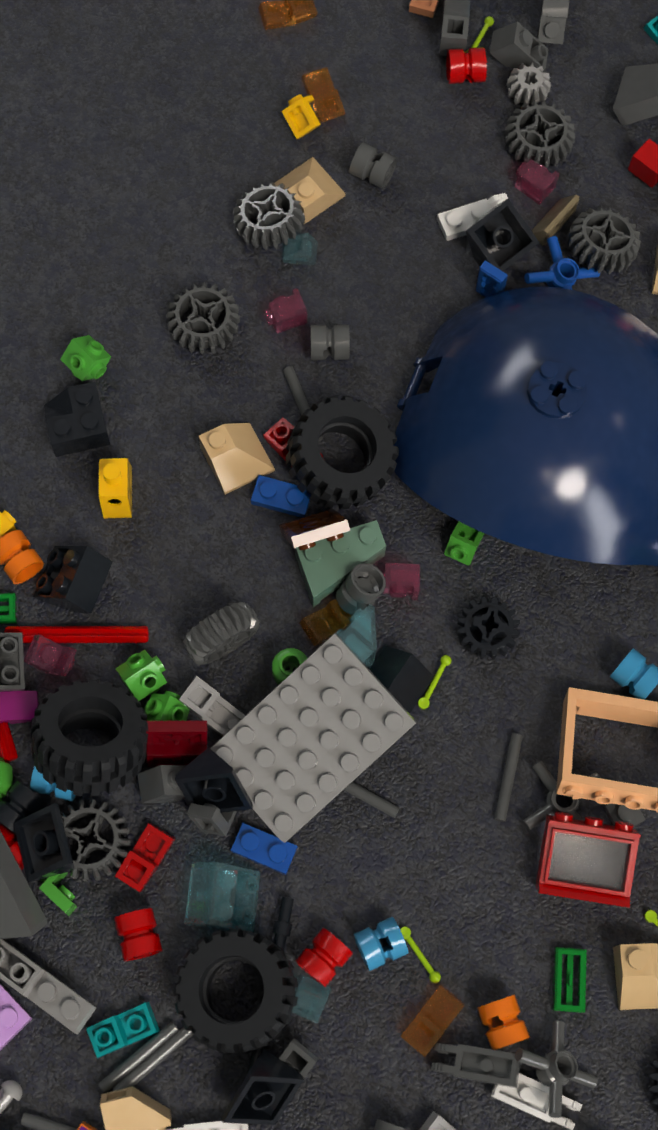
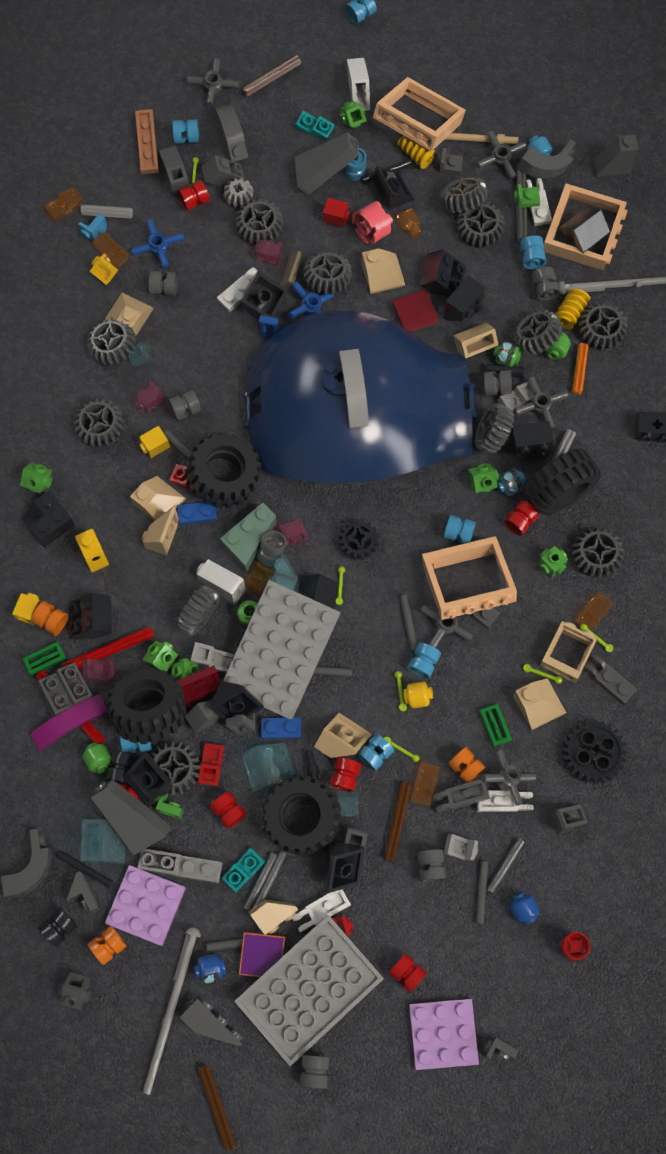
camera: 20 degrees left, 0 degrees up
(220, 503) = (161, 532): none -> tan slope
(265, 375) = (154, 442): none -> yellow brick
(271, 605) = (222, 580): none -> white slope
(314, 58) = (95, 229): none -> dark azure bracket
(315, 527) = (227, 522): reddish brown plate -> none
(340, 42) = (106, 211): none -> light grey axle
(343, 902) = (342, 737): none -> tan slope
(369, 1058) = (397, 821): none -> reddish brown axle
(389, 120) = (158, 250): none -> blue bar
(448, 894) = (402, 707): none -> lime hinge
(463, 543) = (321, 494): bright green bracket -> none
(477, 887) = (418, 694): none -> yellow head
(506, 841) = (424, 659): none -> dark azure wheel
(571, 413) = (354, 388): none -> light grey slope
(587, 859) = (476, 650): window -> none

